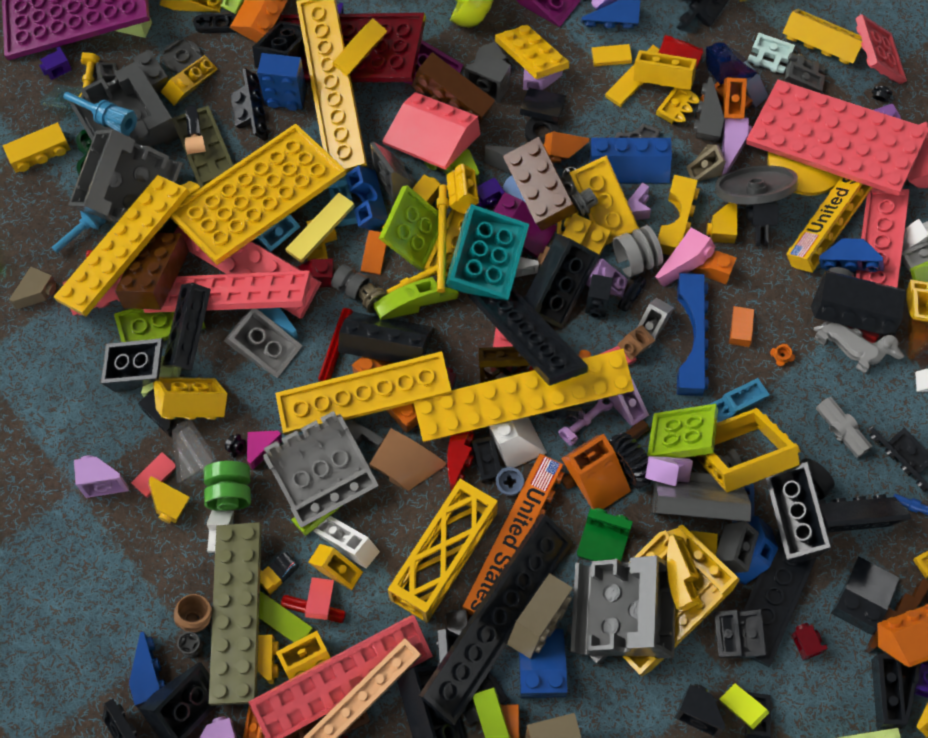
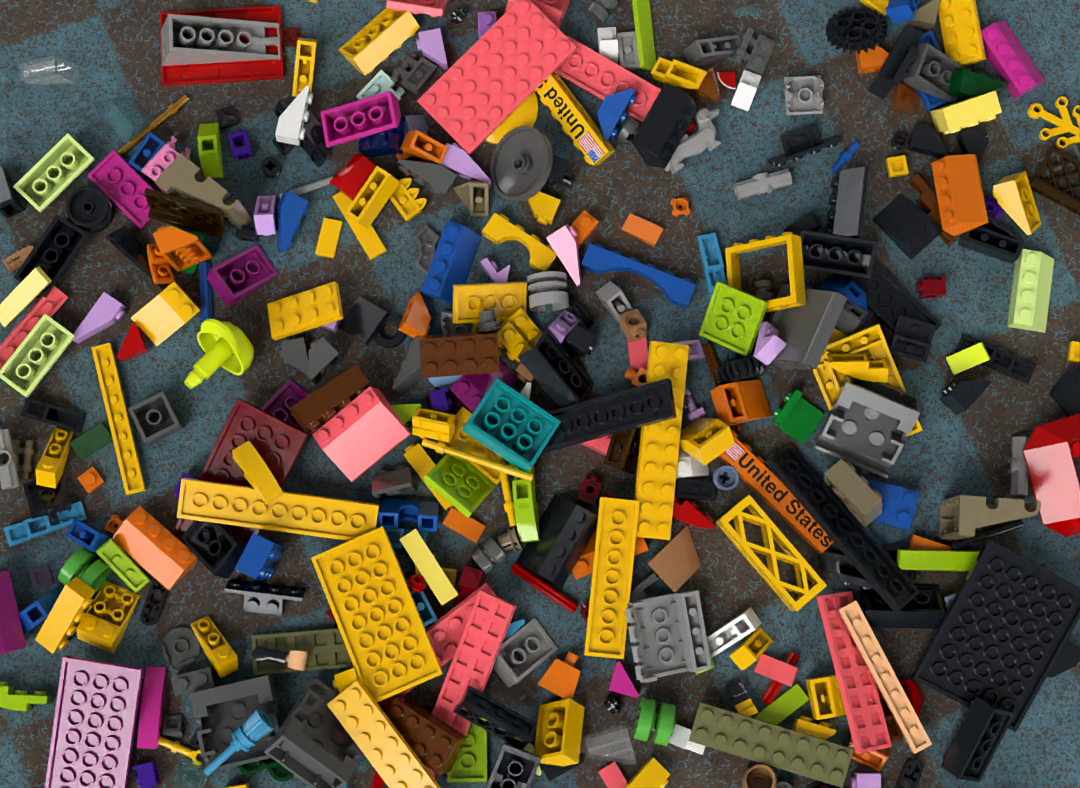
camera: 75 degrees left, 15 degrees up
(117, 47) = (151, 707): none -> dark pink slope
(248, 387) = (561, 676): none -> orange torso
(299, 220) = (414, 586): none -> red plate
(451, 361) = (589, 498): none -> dark red brick
(539, 442) = (706, 439): none -> yellow slope
(652, 24) = (311, 186): none -> light grey bar
(739, 36) = (360, 118): none -> dark pink slope
(841, 80) = (432, 47): none -> lavender slope

